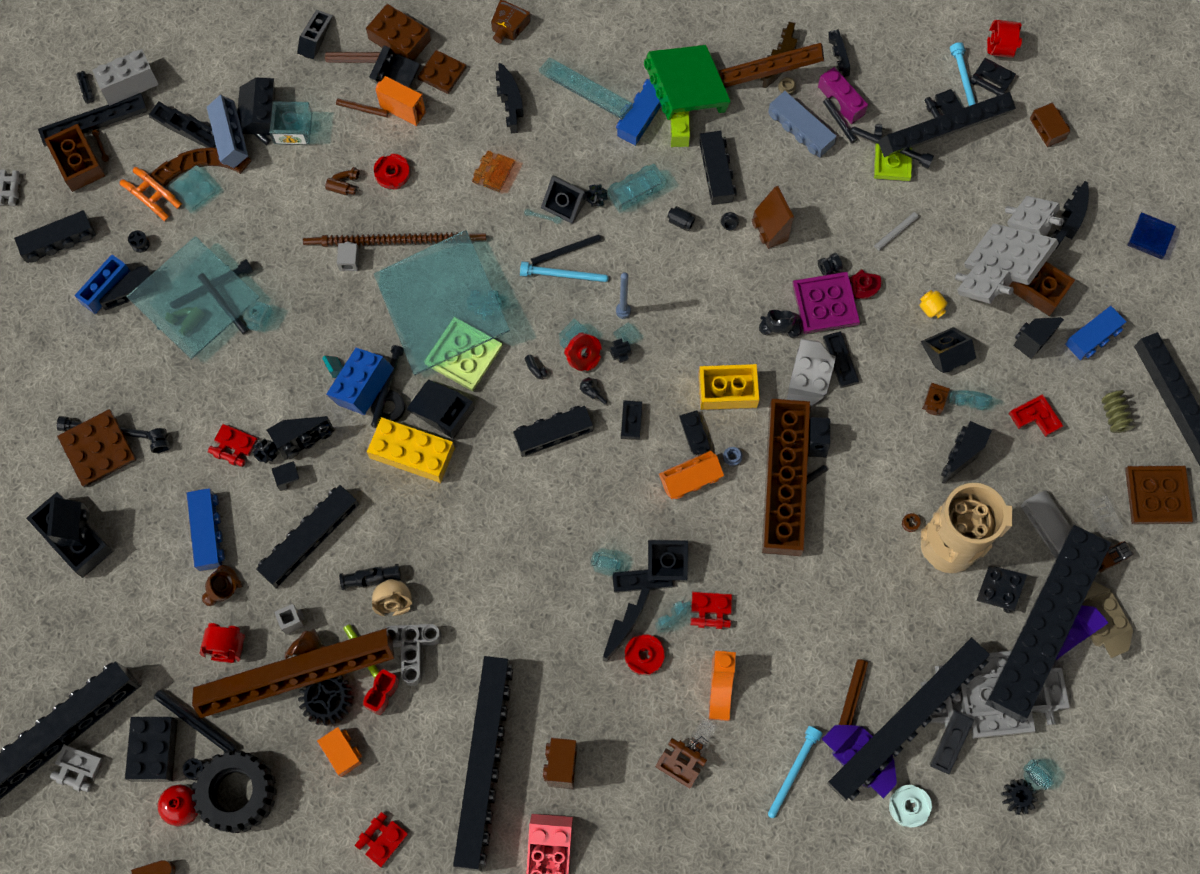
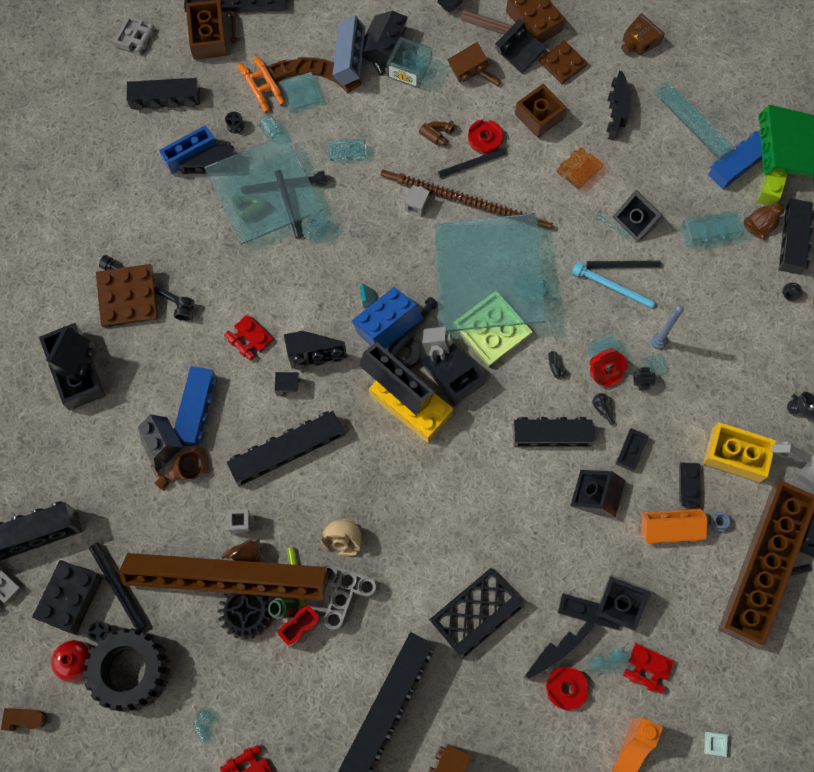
camera: 20 degrees right, 0 degrees up
(176, 234) = (270, 127): none -> clear light blue brick
(183, 125) = (312, 33): black slope -> none
(183, 573) = (159, 440): none -> black slope
(200, 612) = (161, 482): none -> reddish brown hand
(222, 643) = (169, 521): red brick -> none
(261, 229) = (349, 149): none -> clear light blue slope
(265, 450) = (276, 353): black gear -> none
(321, 814) = (200, 724): none -> clear light blue arm
(340, 752) = (240, 669): orange brick -> none
(349, 104) = (468, 62): none -> reddish brown brick
(360, 681) = (283, 608): none -> dark green brick
(374, 576) = (317, 506): black piece -> none
(388, 432) = (396, 378): none -> black brick
(389, 200) = (470, 163): none -> black bar
(400, 100) = (516, 73): orange brick -> none
(415, 385) = (437, 342): none -> light grey brick
(436, 128) = (540, 110): none -> reddish brown brick
(556, 624) = (485, 628): none -> black fence
(596, 195) = (670, 223): black gear -> none
(605, 561) = (559, 580): clear light blue head -> none
(613, 470) = (598, 492): none -> black slope
(681, 218) = (745, 272): black brick -> none
(682, 162) = (764, 220): none -> reddish brown hair
(772, 370) = (791, 453): none -> light grey plate
(792, 653) = (716, 744): none -> light aqua tile

